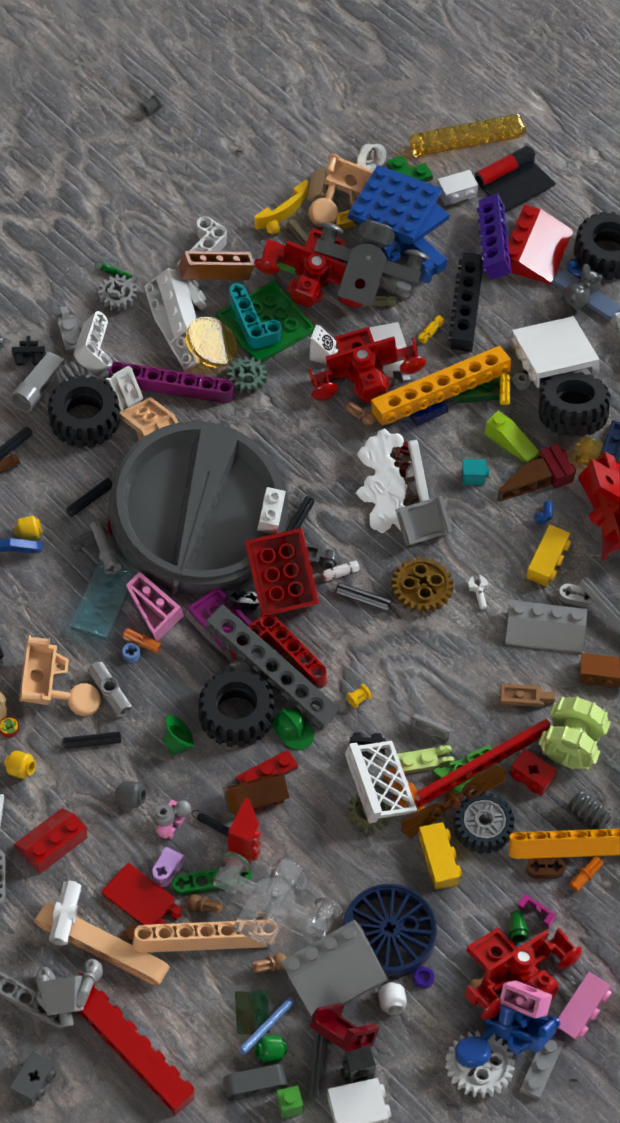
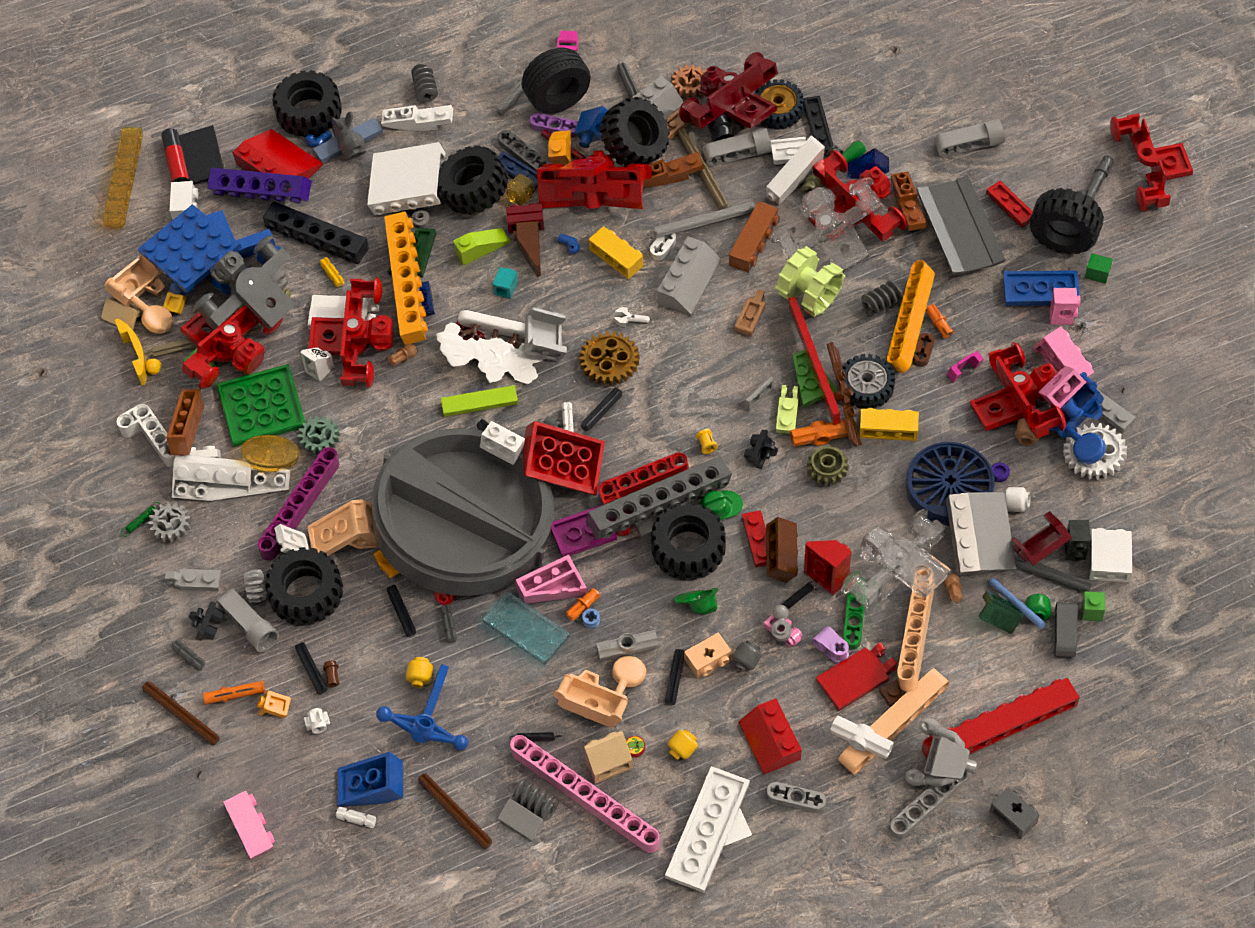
camera: 65 degrees left, 0 degrees up
(89, 342) = (228, 556): white beam -> none
(107, 554) = (480, 606): light grey pin -> none
(113, 755) = (708, 655): none -> light nougat brick
(196, 902) = (872, 633): medium nougat axle -> none
(241, 600) = (572, 506): black beam -> none
(255, 332) = (231, 414): teal beam -> none
(335, 492) = (479, 400): none -> lime tile
(364, 780) = (806, 454): white fence -> none
(371, 155) = (110, 260): white piece -> none
(418, 172) = (146, 229): green plate -> none
(505, 389) = (431, 229): yellow axle -> none
(518, 930) = (975, 386): green cone -> none
(542, 775) = (830, 329): red brick -> none

